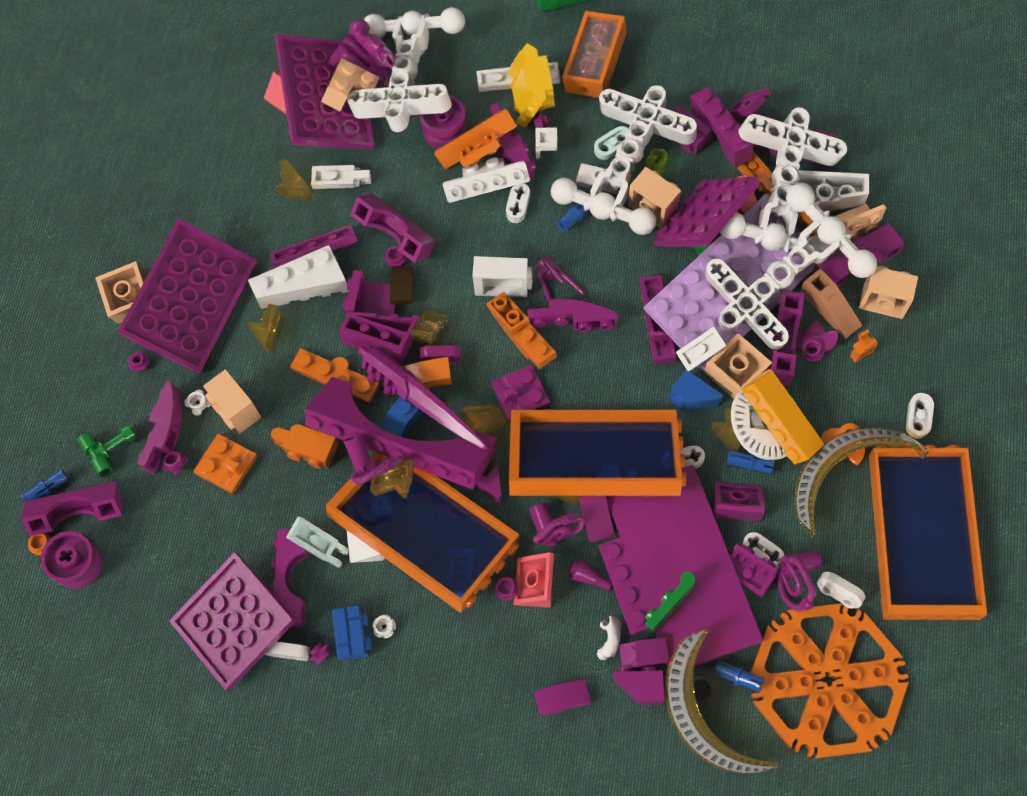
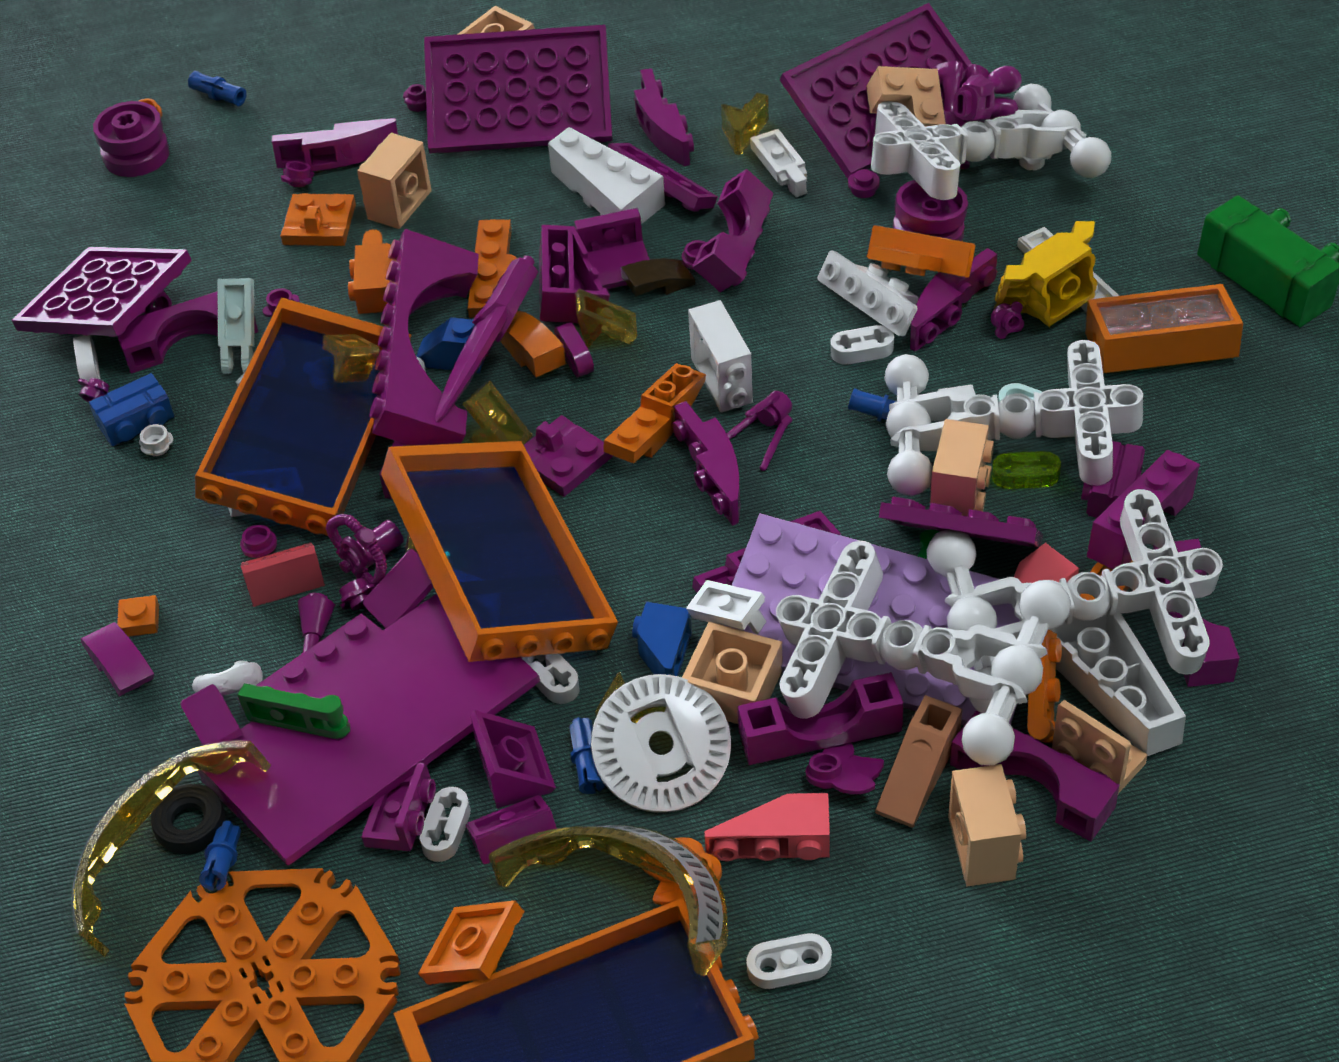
camera: 65 degrees right, 20 degrees down
(46, 513) = (214, 129): magenta arch -> none
(100, 451) = (286, 112): green bar -> none
(266, 227) = (662, 120): none -> magenta slope
(266, 331) = (517, 181): clear yellow slope -> none
(297, 505) = (273, 299): none -> magenta plate
(364, 467) = (356, 305): magenta piece -> none
(384, 142) = (863, 183): none -> magenta plate
(528, 677) = (138, 615): none -> orange plate
(545, 140) = (975, 325): white panel -> none
(579, 543) = (354, 593): none -> magenta plate
(642, 686) = (162, 732): magenta slope -> none
(750, 104) = (1208, 528): magenta plate -> none
(778, 518) = (509, 825): none -> magenta slope
(782, 417) = (666, 747): light orange brick -> none
(790, 567) = (429, 857): magenta piece -> none
(840, 385) = (782, 828): none -> coral slope
(841, 590) = (410, 957): white plate -> none
(856, 560) = (471, 943): none -> orange hinge
(863, 347) = (865, 833): orange plate -> none

